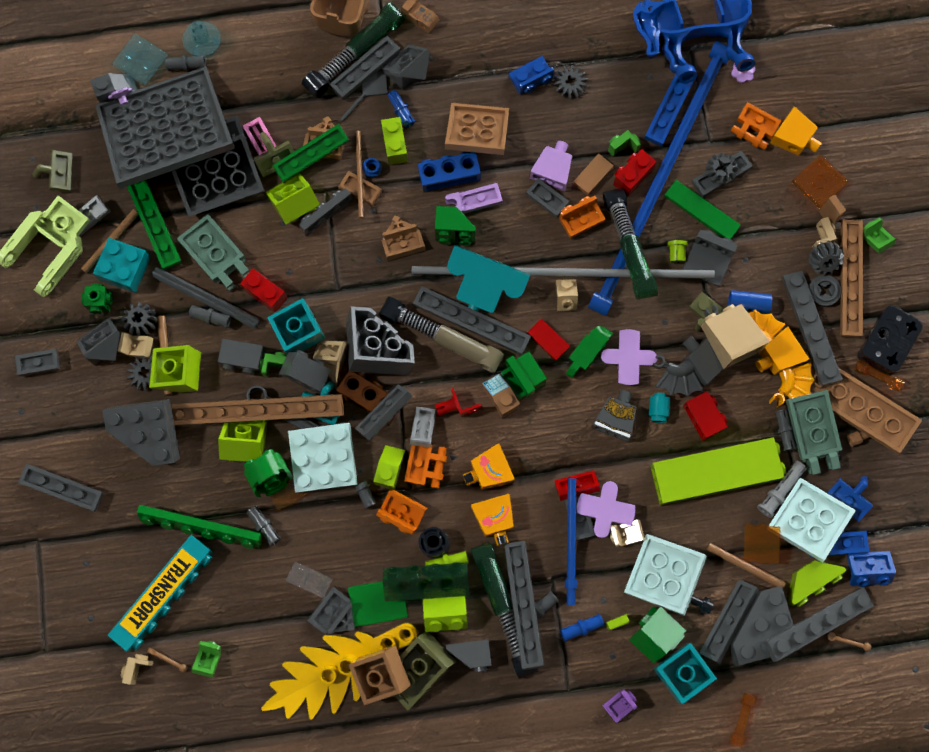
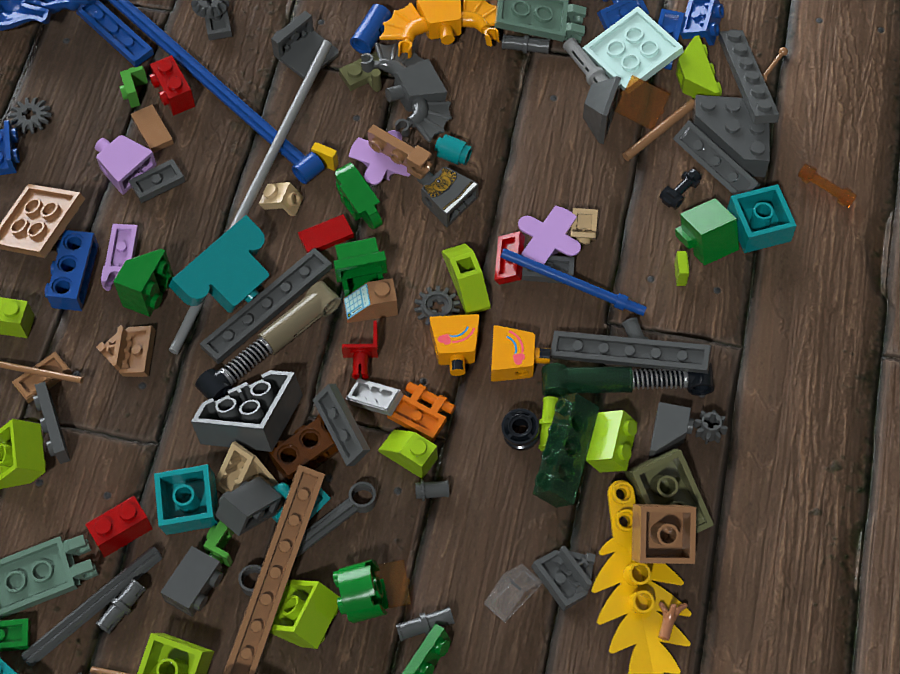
camera: 70 degrees left, 15 degrees down
(322, 457) = (366, 521): light aqua plate -> none
(322, 698) = (669, 619): none -> nougat bar
(370, 605) = (571, 525): green window -> none
(372, 162) = (18, 349): blue plate -> none
(401, 512) = (469, 453): orange bracket -> none
(490, 689) = (710, 434): none -> dark grey gear
(518, 436) = (439, 297): none -> dark grey gear
(547, 457) = (467, 278): none -> lime slope
(581, 216) = (198, 153): orange bracket -> none
(582, 627) = (675, 306): blue pin -> none
(615, 312) = (327, 155): none -> yellow tile
(620, 705) = (776, 294): medium lavender bracket -> none
(629, 383) = (400, 152): none -> medium nougat plate
(643, 282) = (308, 104): clear green piece -> none
(665, 574) = (644, 201): light aqua plate -> none
(678, 251) = (282, 75): lime bush -> none
(702, 210) = (243, 41): green tile -> none
(705, 415) = (480, 110): red brick -> none
(717, 471) = (546, 120): lime brick -> none
(733, 335) = (407, 40): tan slope -> none
(743, 511) = (600, 106): none -> dark grey slope

